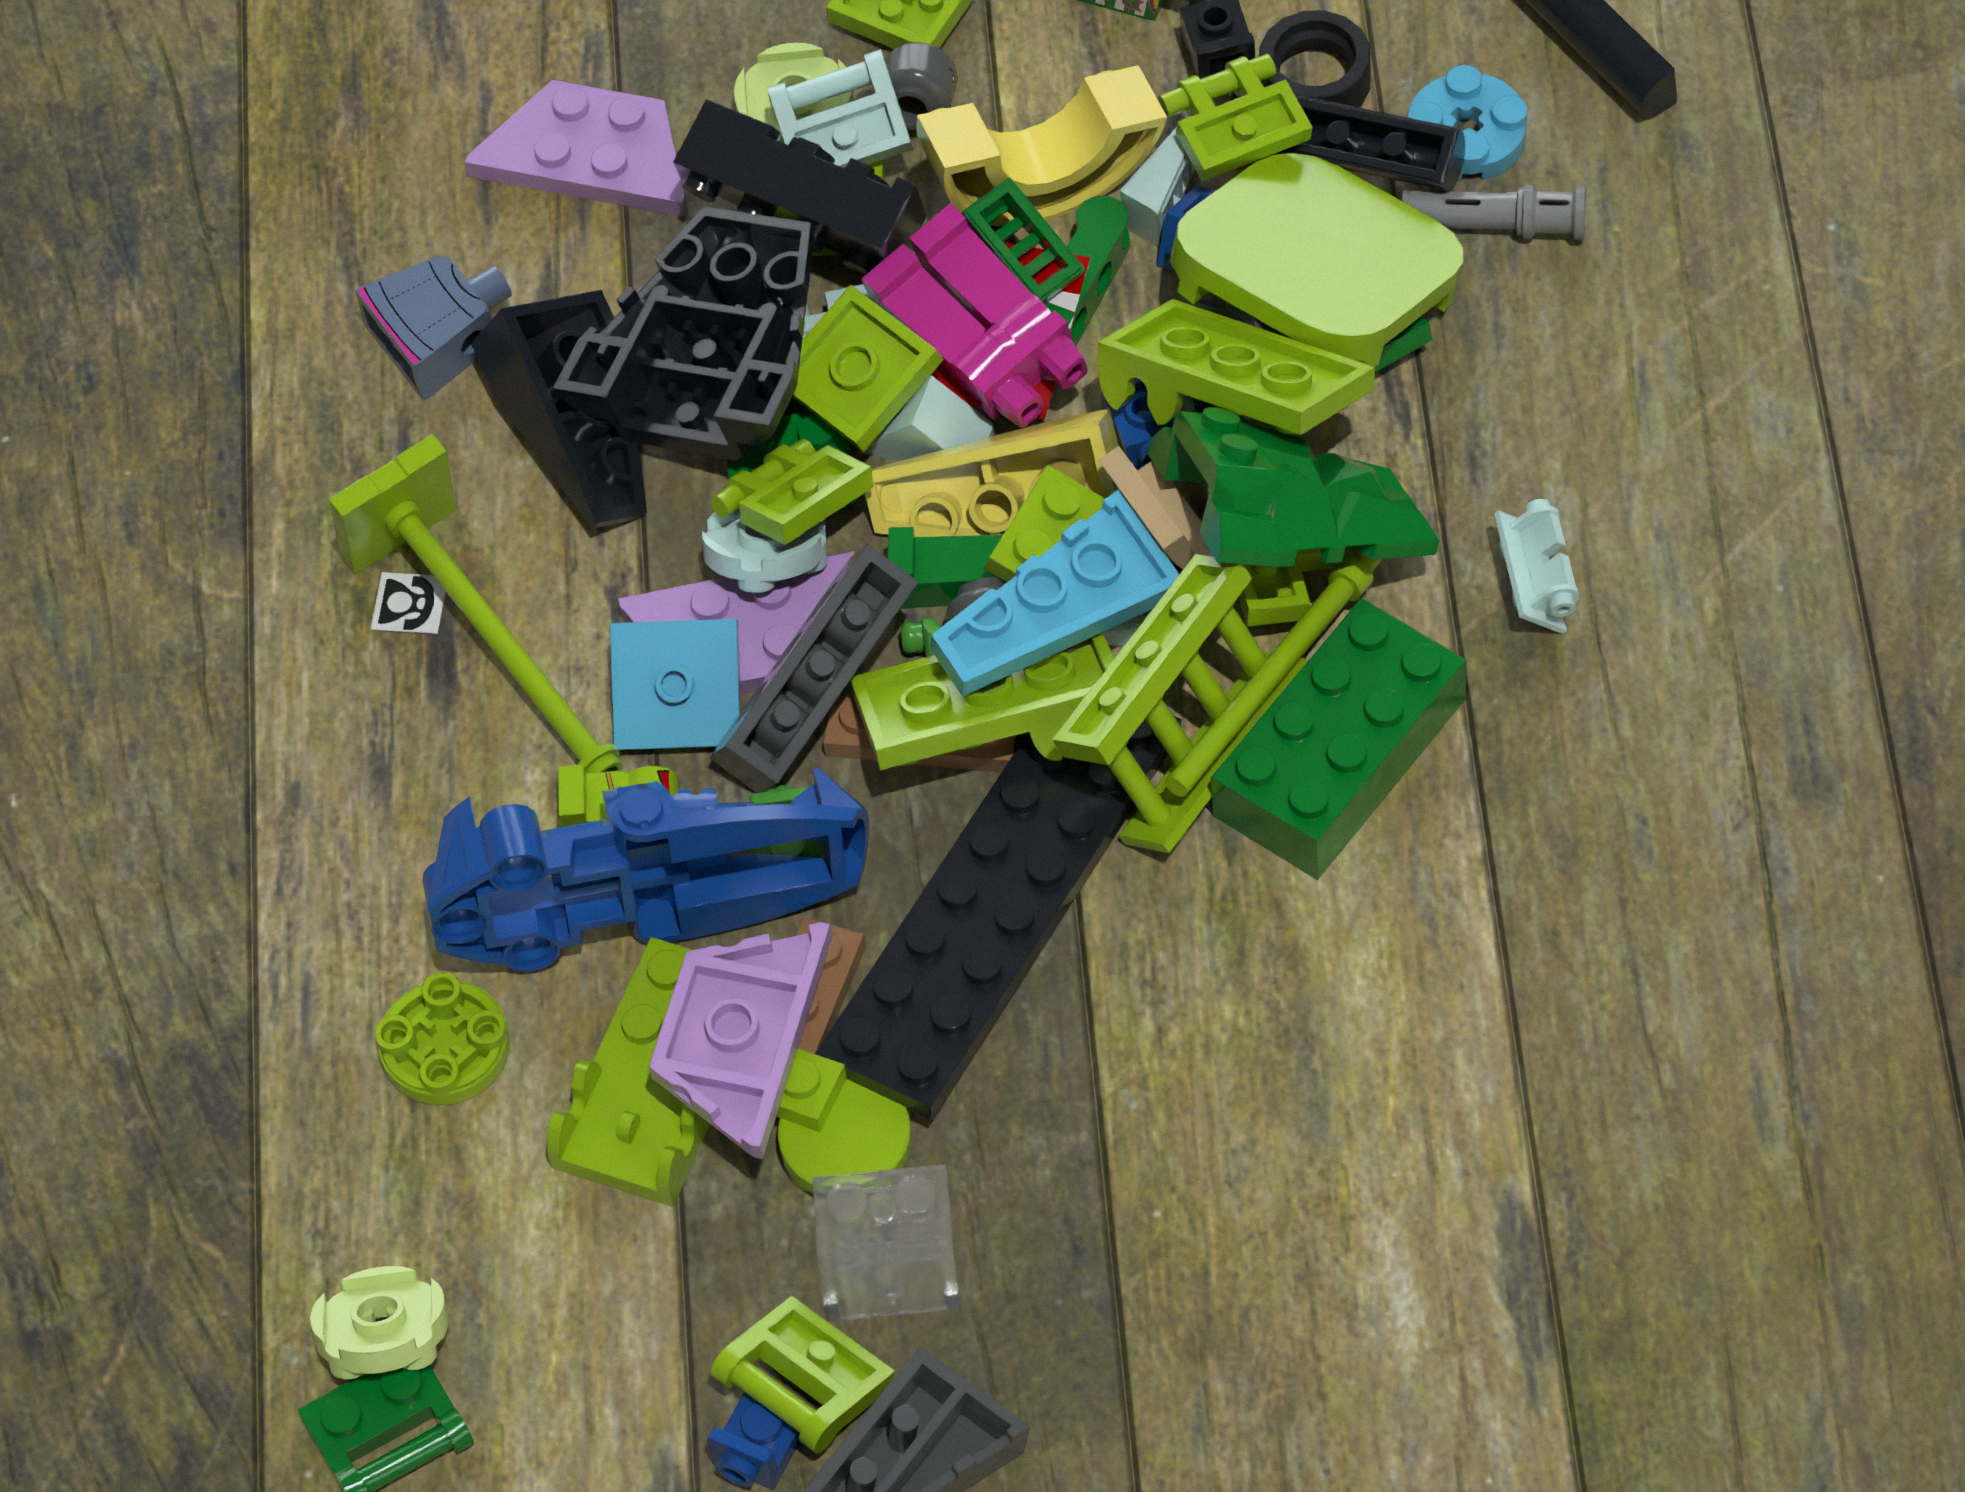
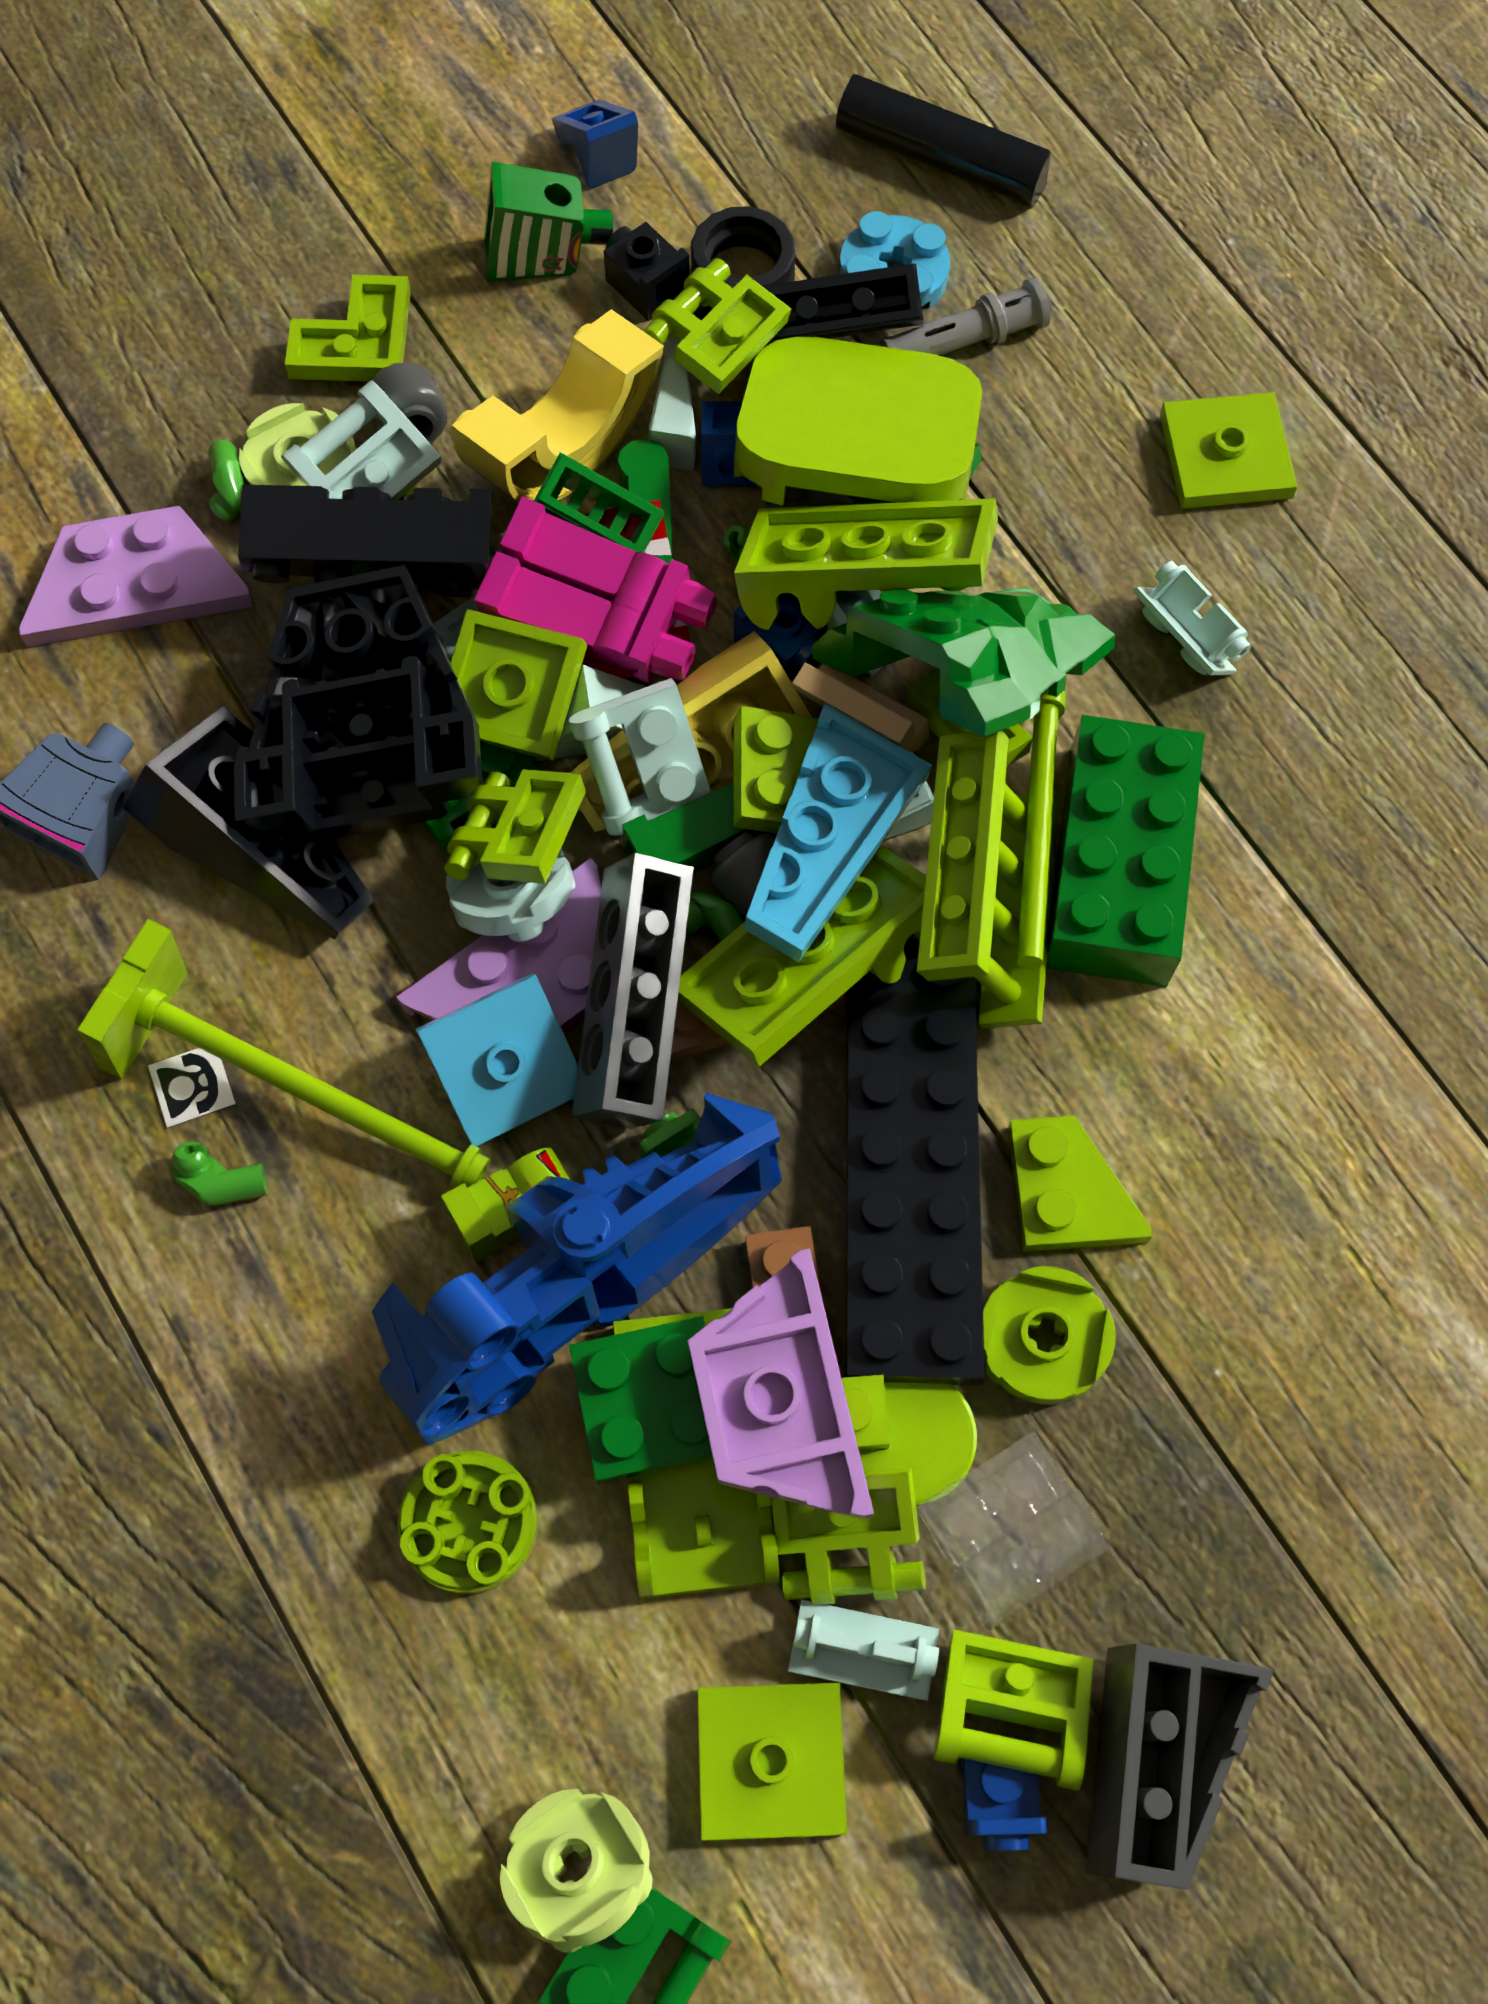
camera: 35 degrees left, 10 degrees up
(382, 685) = (211, 1181): none -> bright green arm
(584, 1330) = (771, 1761): none -> lime plate
(621, 998) = (641, 1401): none -> green plate
(707, 1279) = (864, 1650): none -> light aqua hinge
(720, 83) = (227, 480): none -> bright green arm
(721, 1164) = (820, 1531): none -> lime plate
(958, 472) = (659, 747): none -> light aqua plate
(1018, 1145) = (1077, 1314): none -> lime plate
(1111, 1006) = (1068, 1189): none -> lime wing
(1688, 424) = (1228, 450): none -> lime plate

